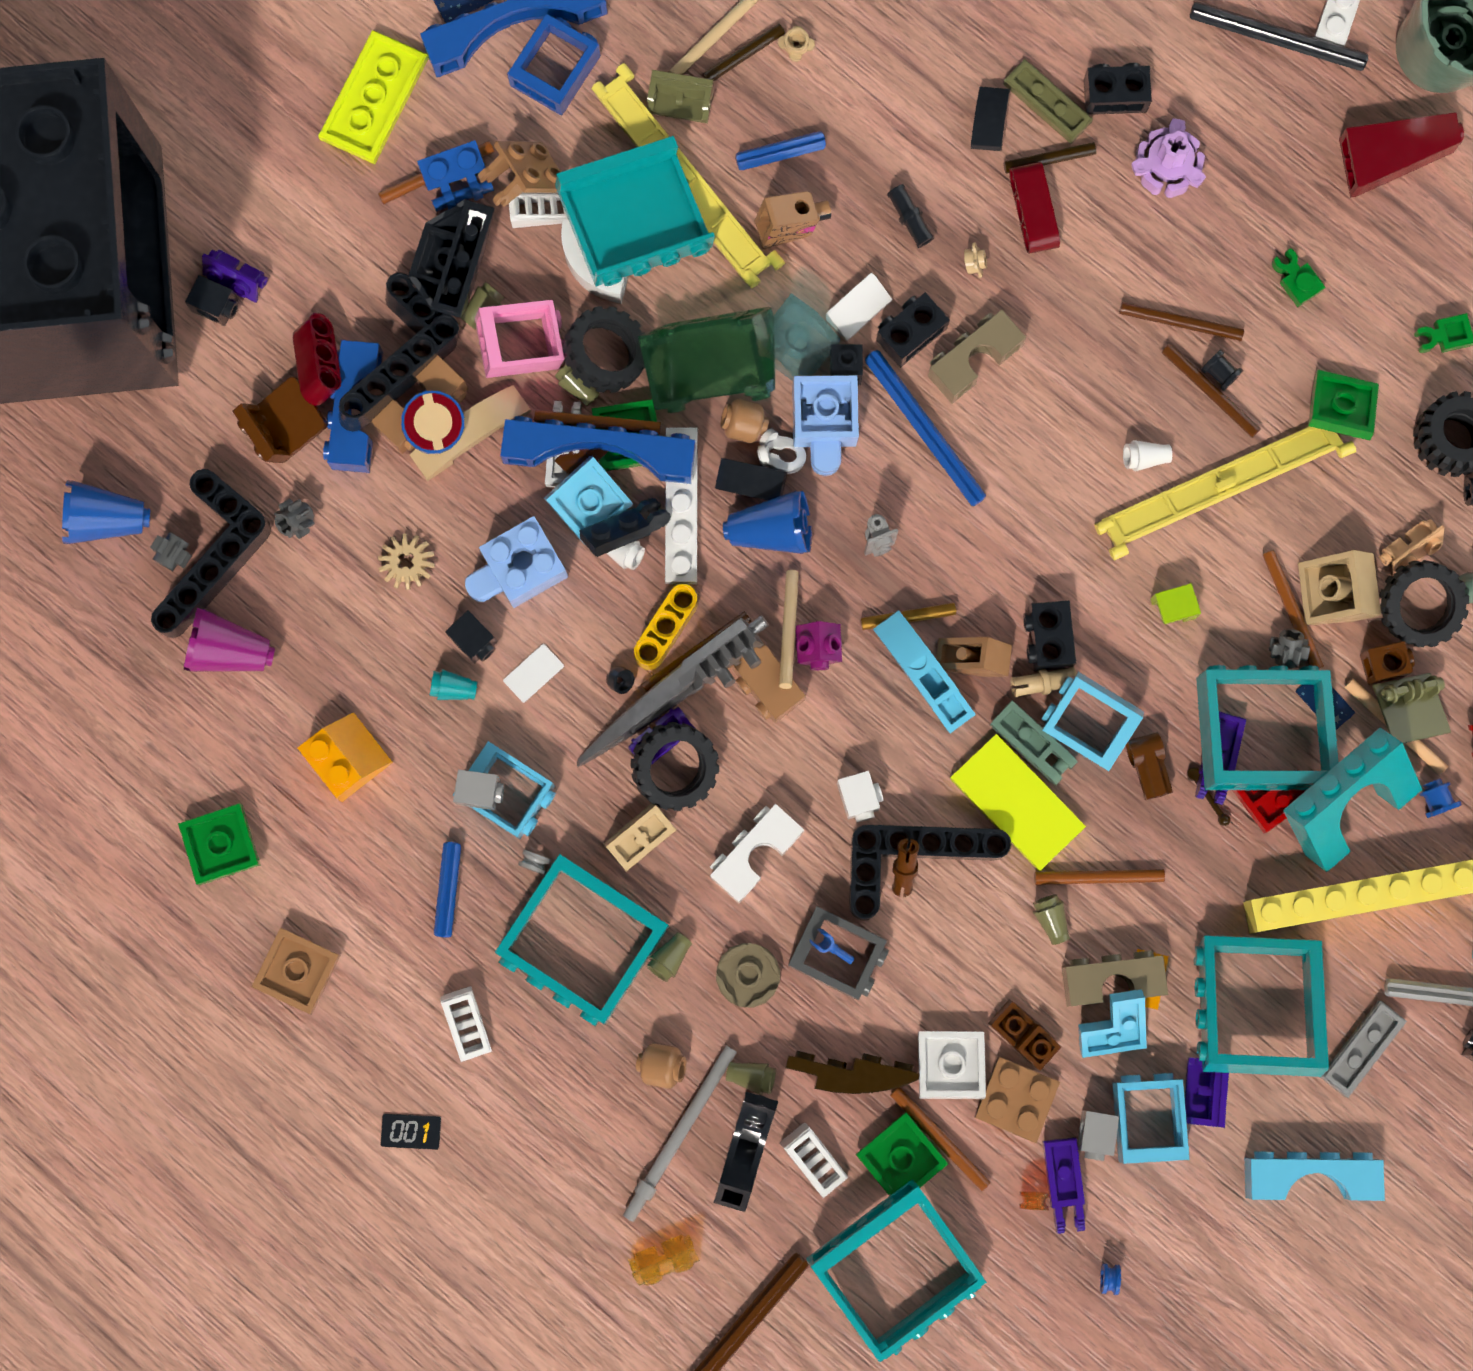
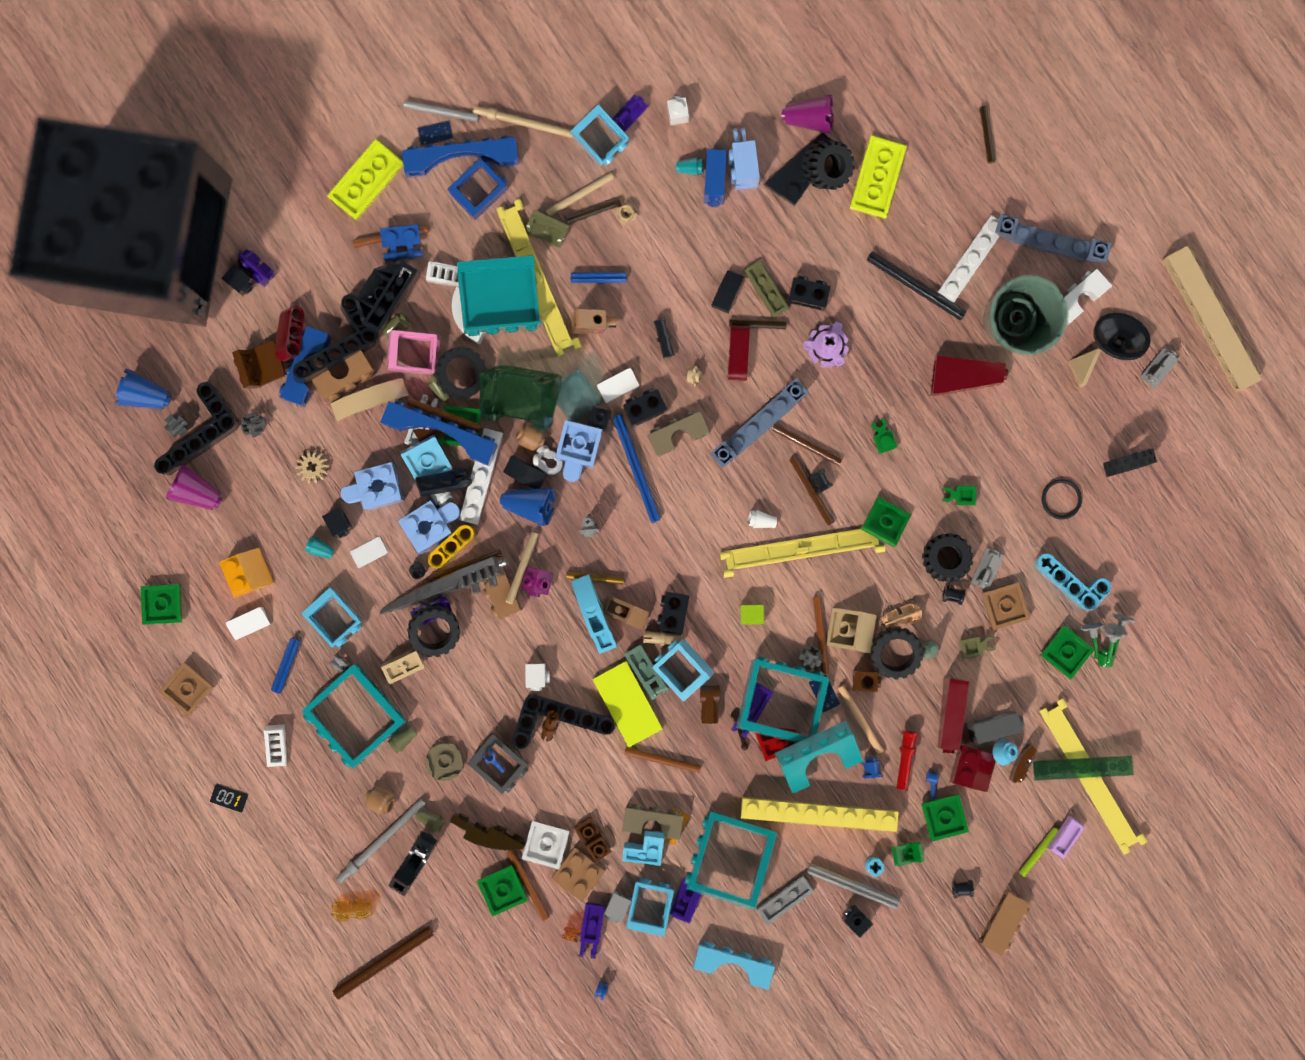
camera: 20 degrees right, 5 degrees up
(368, 837) = (248, 623): none -> white slope
(432, 422) = (347, 390): tile -> none
(478, 790) = (315, 615): light grey brick -> none
(531, 165) = (445, 248): medium nougat plate -> none
(621, 601) = (429, 525): none -> light blue brick
(773, 830) = (452, 701): white arch -> none
(796, 1138) = (446, 879): white slope -> none
(866, 1227) = (474, 922): teal window -> none
(1052, 918) = (627, 775): olive cone -> none
(1101, 303) = (759, 423): none -> sand blue slope
(1413, 707) = (872, 712): olive hinge -> none

